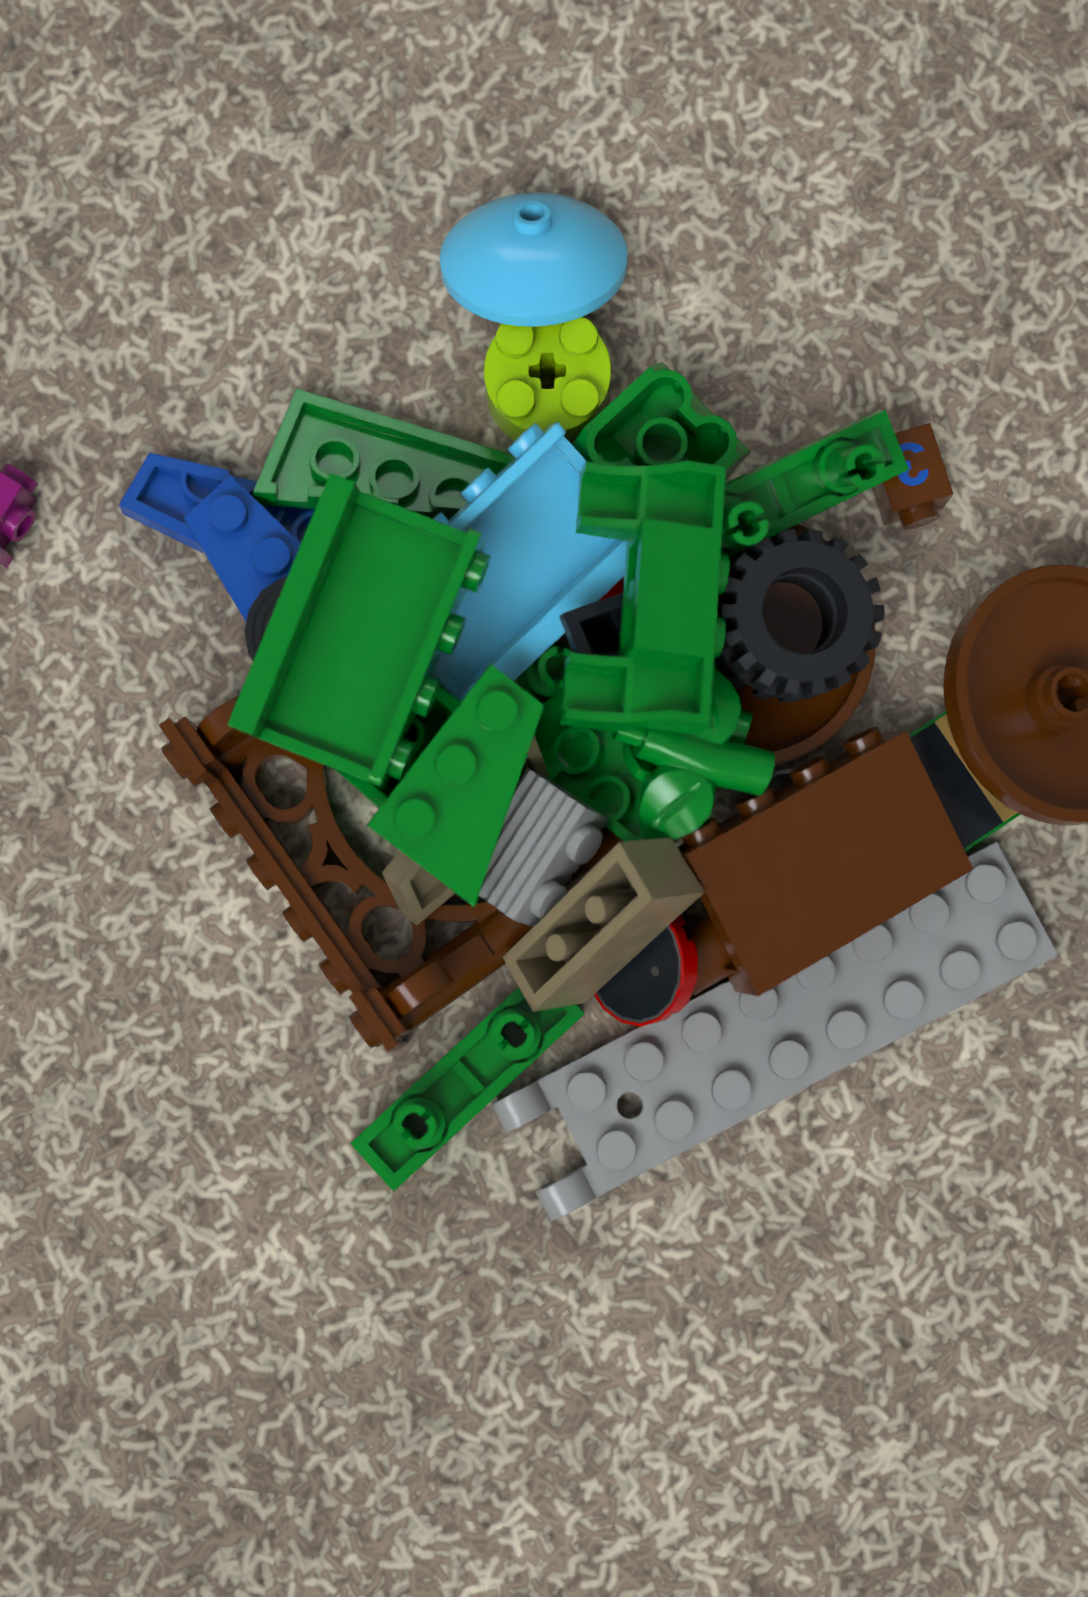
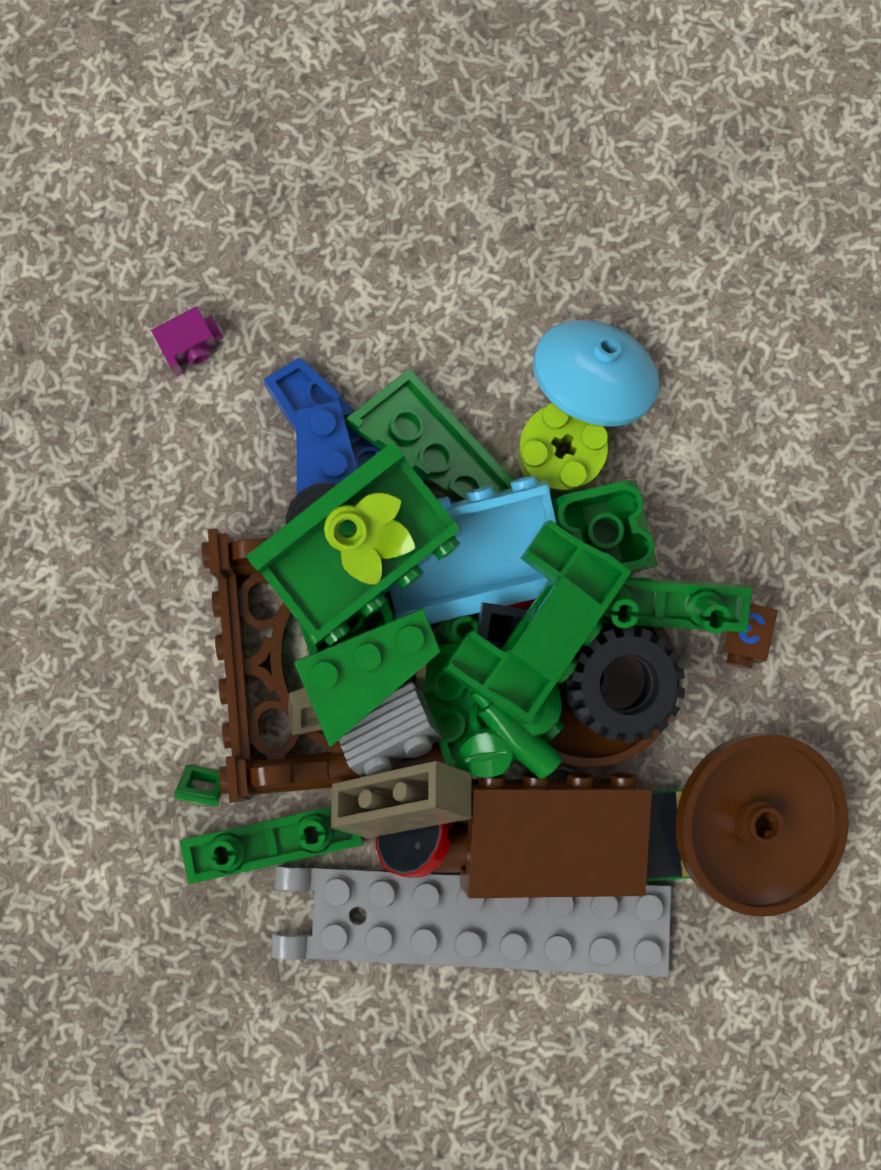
camera: 25 degrees right, 0 degrees up
(340, 1076) = (186, 792): none -> green slope
(377, 608) = (375, 536): none -> lime plate

